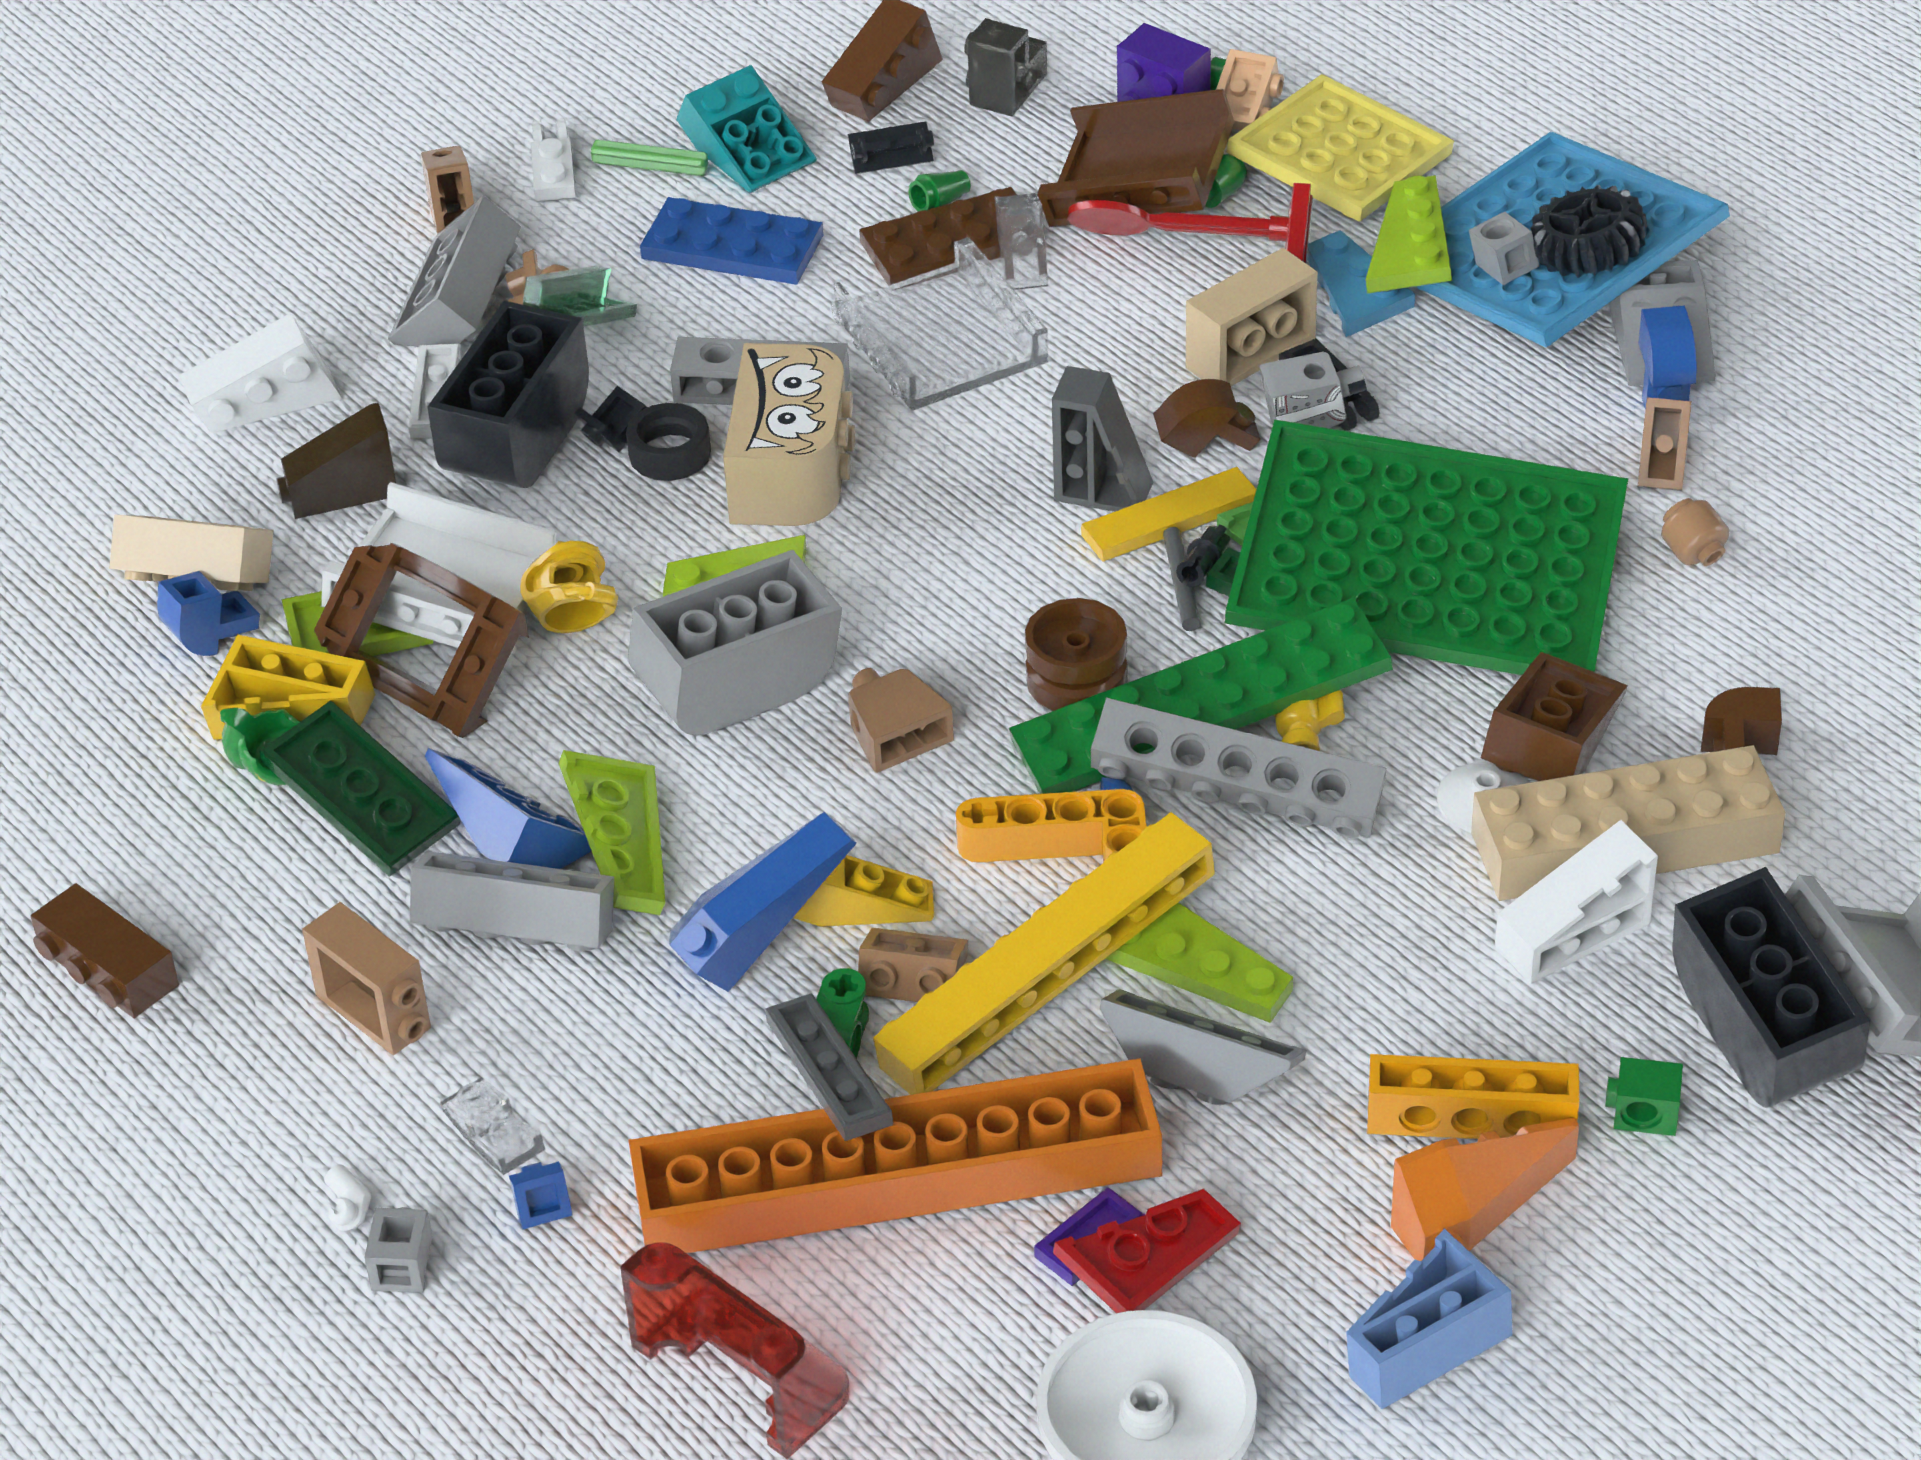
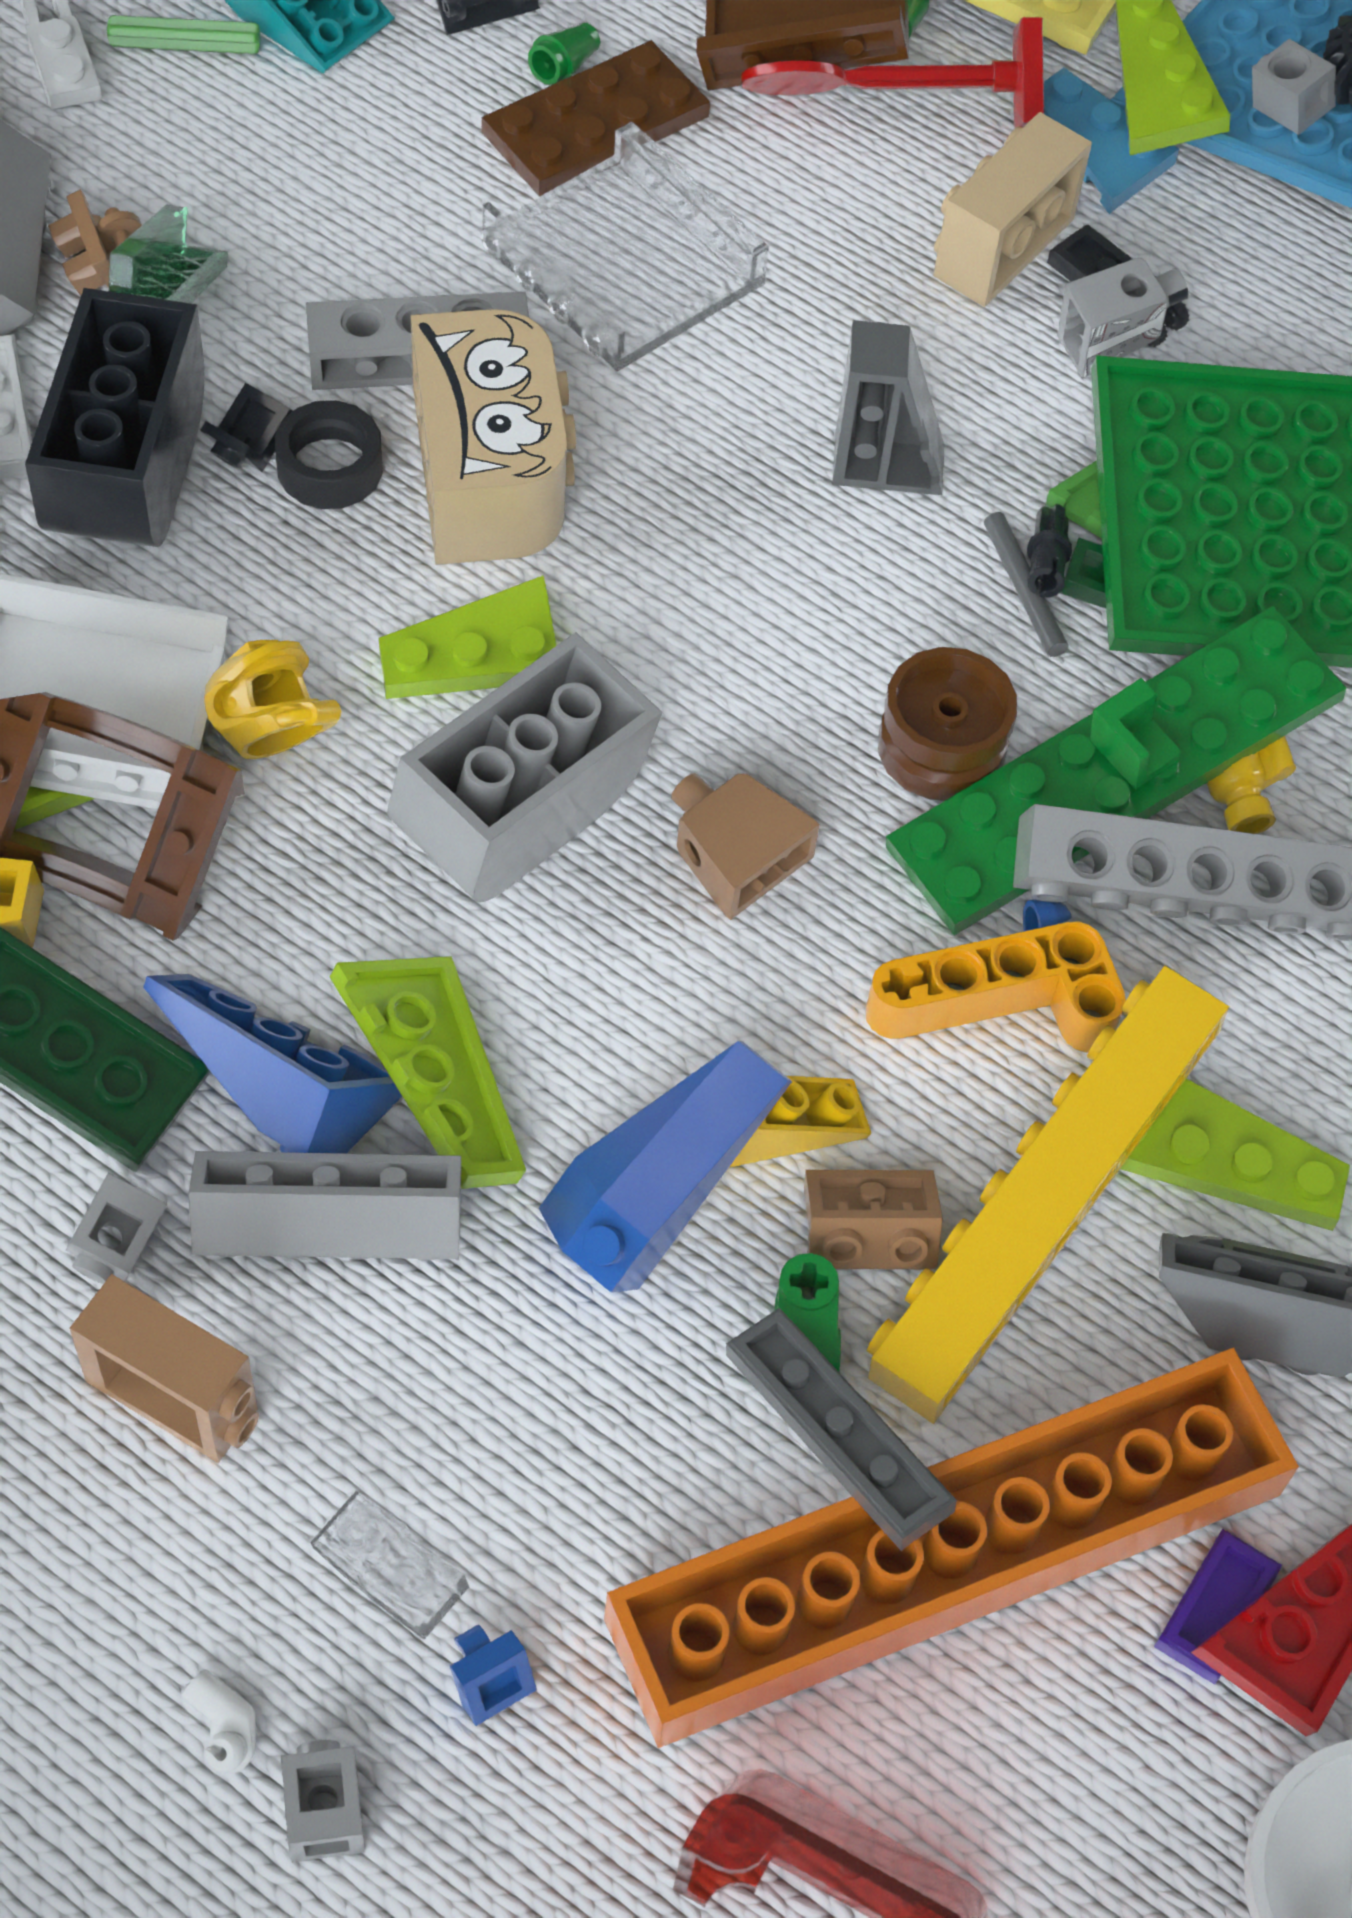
camera: 20 degrees left, 15 degrees up
(364, 886) = (121, 1207): none -> light grey brick
(732, 240) = (322, 146): blue plate -> none
(1022, 240) = (696, 116): clear slope -> none
(1179, 508) = (984, 487): yellow tile -> none
(1200, 413) = (991, 348): reddish brown brick -> none
(1206, 667) = (1130, 737): none -> green panel

